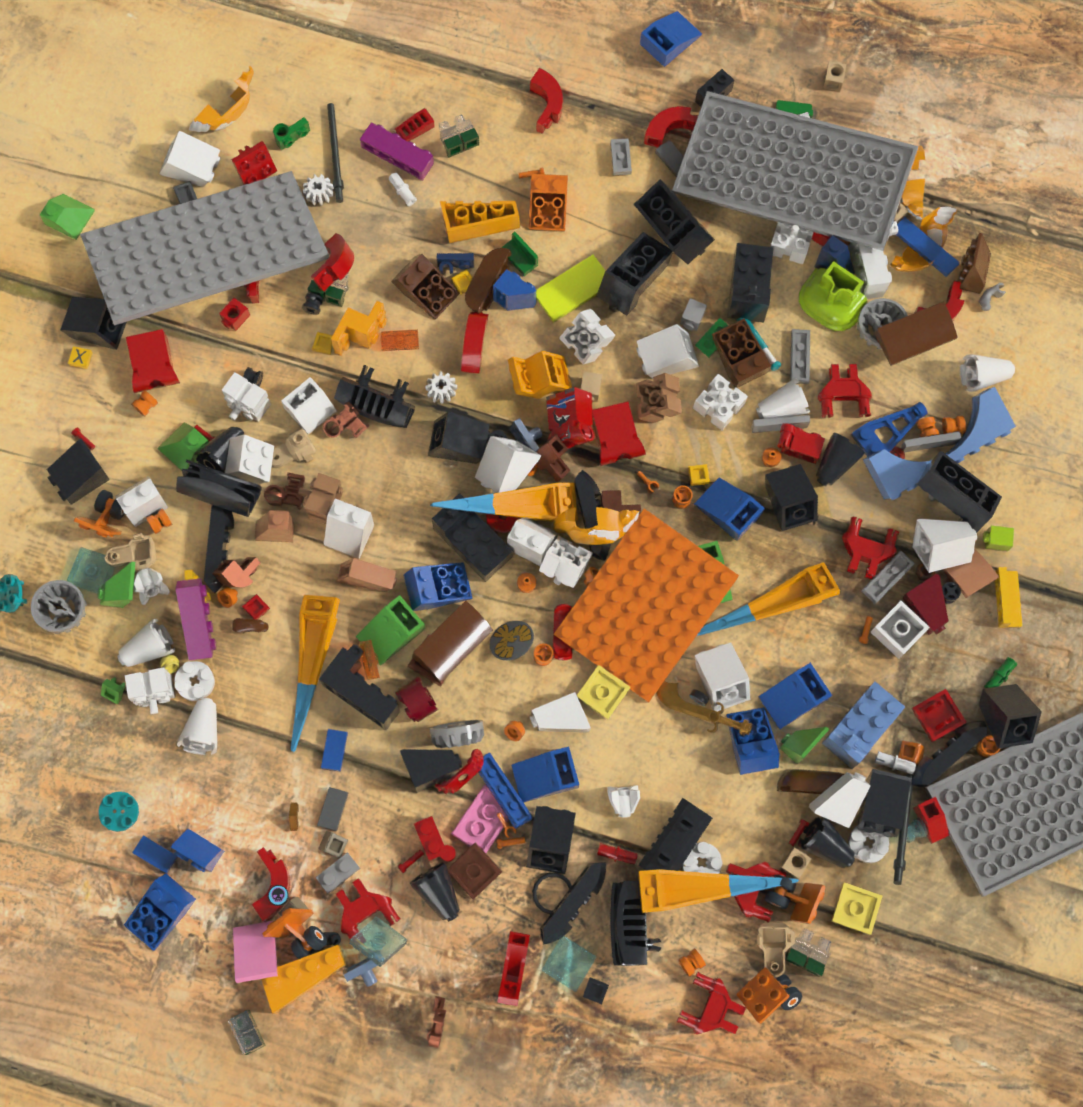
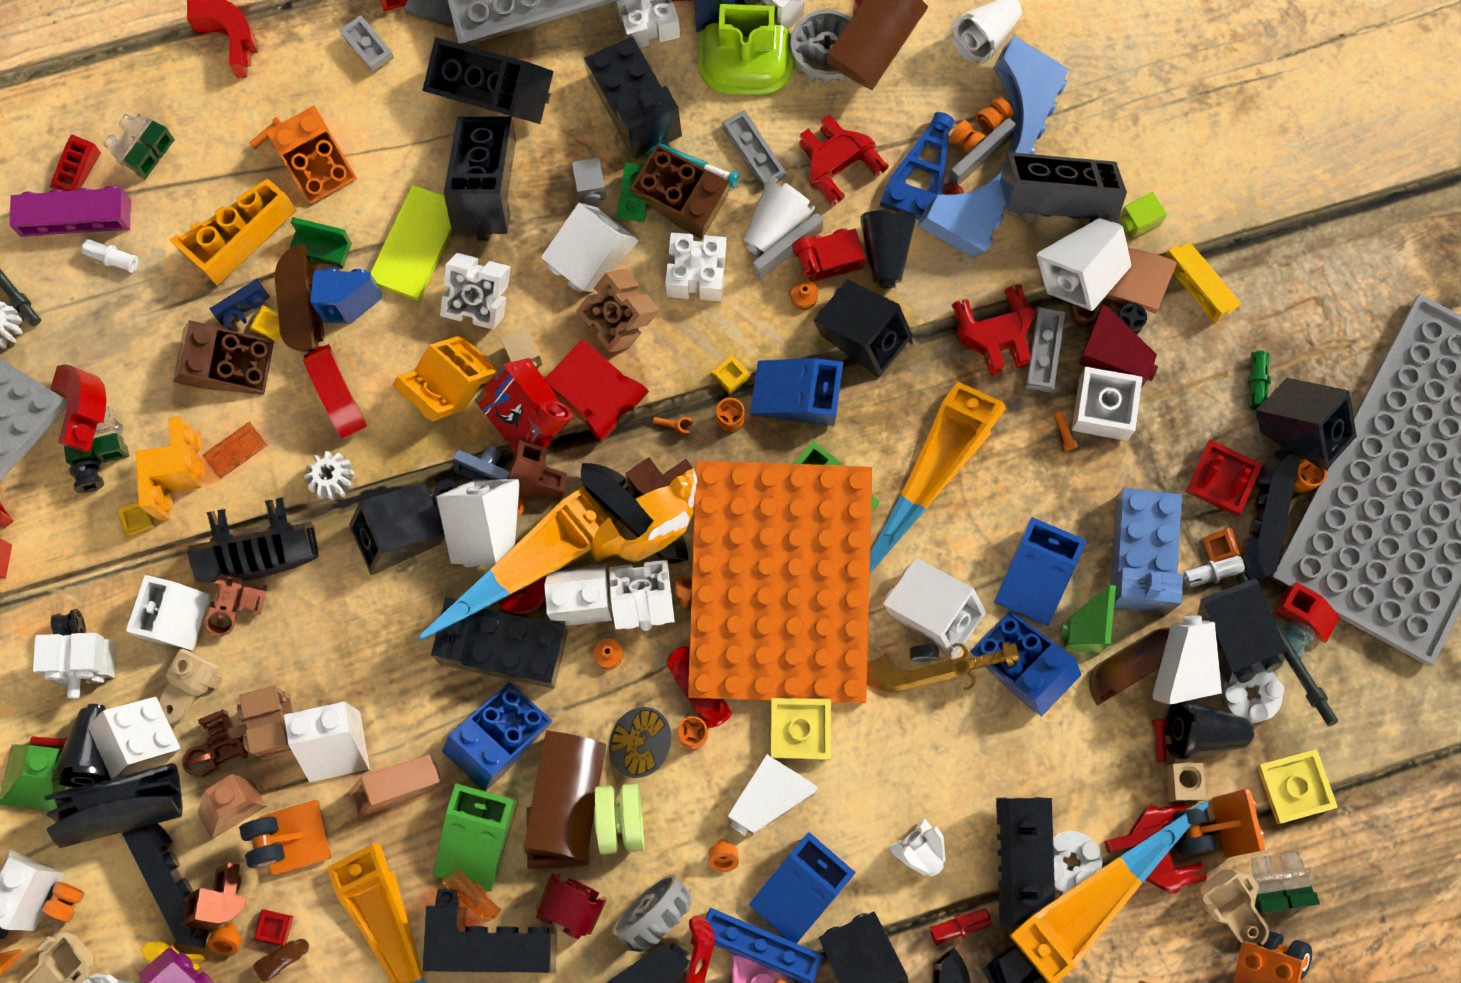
camera: 30 degrees left, 0 degrees up
(293, 566) = (287, 838): none -> orange plate
(473, 672) = (618, 818): none -> yellowish green wheel

